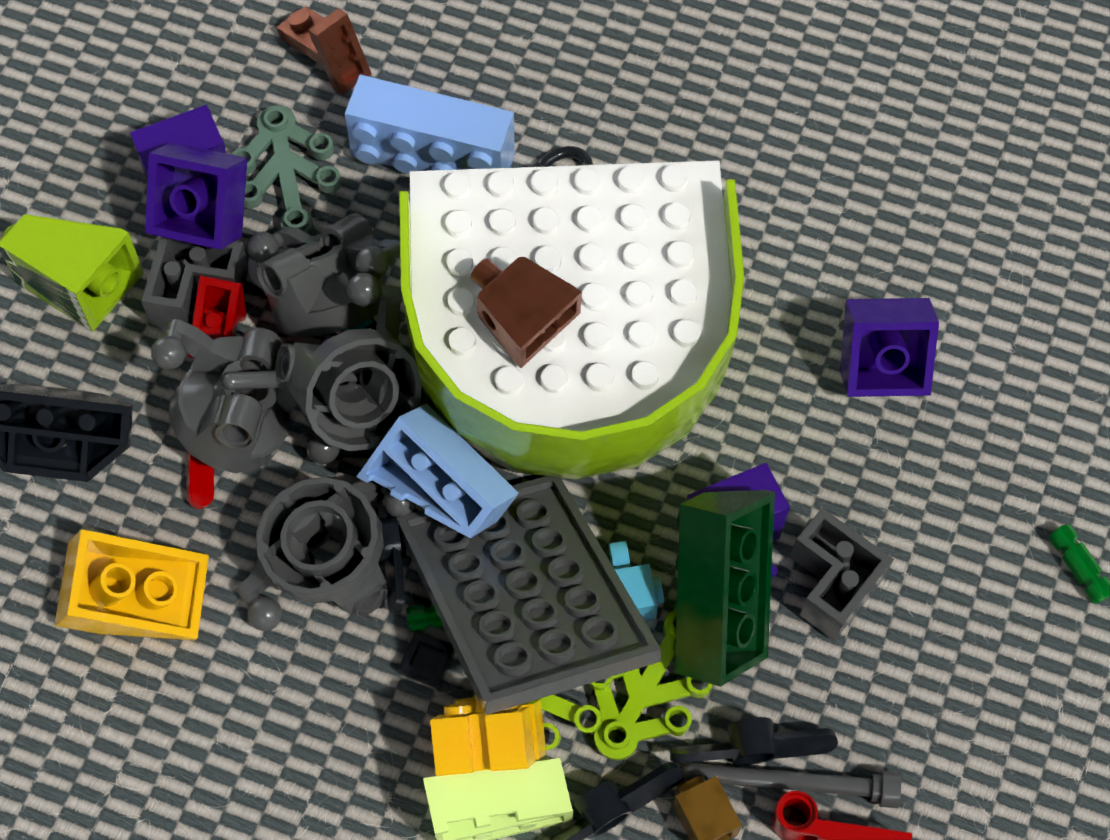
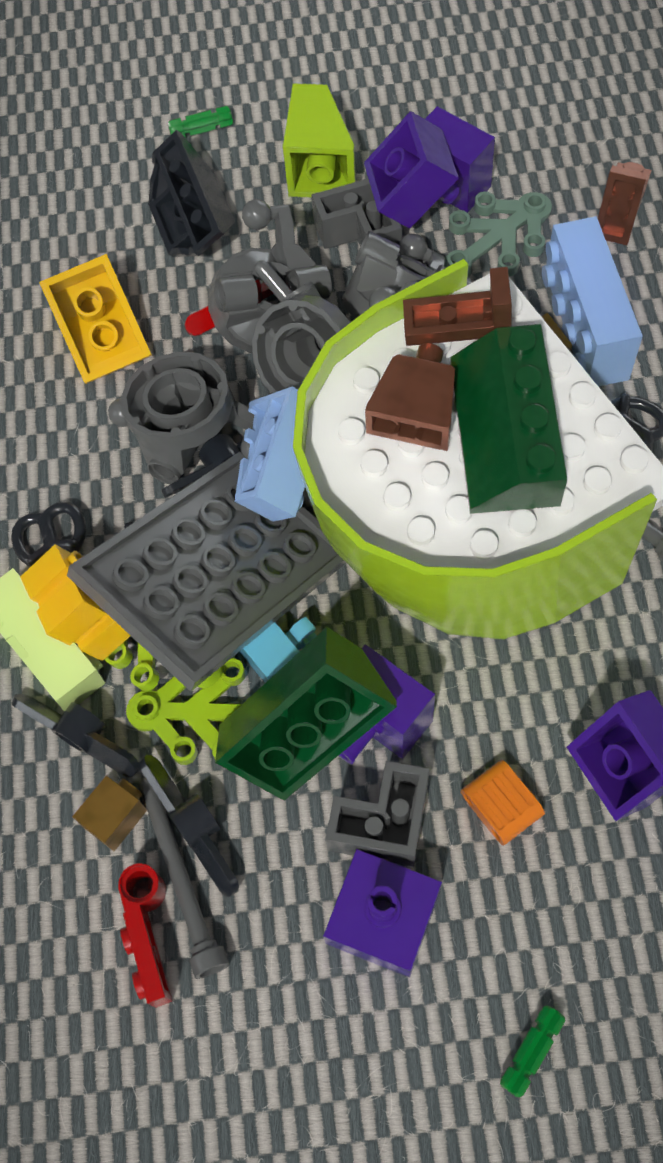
camera: 70 degrees right, 0 degrees up
(218, 307) = (339, 248): red slope -> none
(366, 752) = (48, 531): none -> black piece
(472, 220) = (459, 315): none -> copper bracket
(593, 242) = (508, 422): none -> dark green slope
(865, 475) = (502, 802): none -> orange piece
(919, 618) = (382, 913): none -> dark purple brick

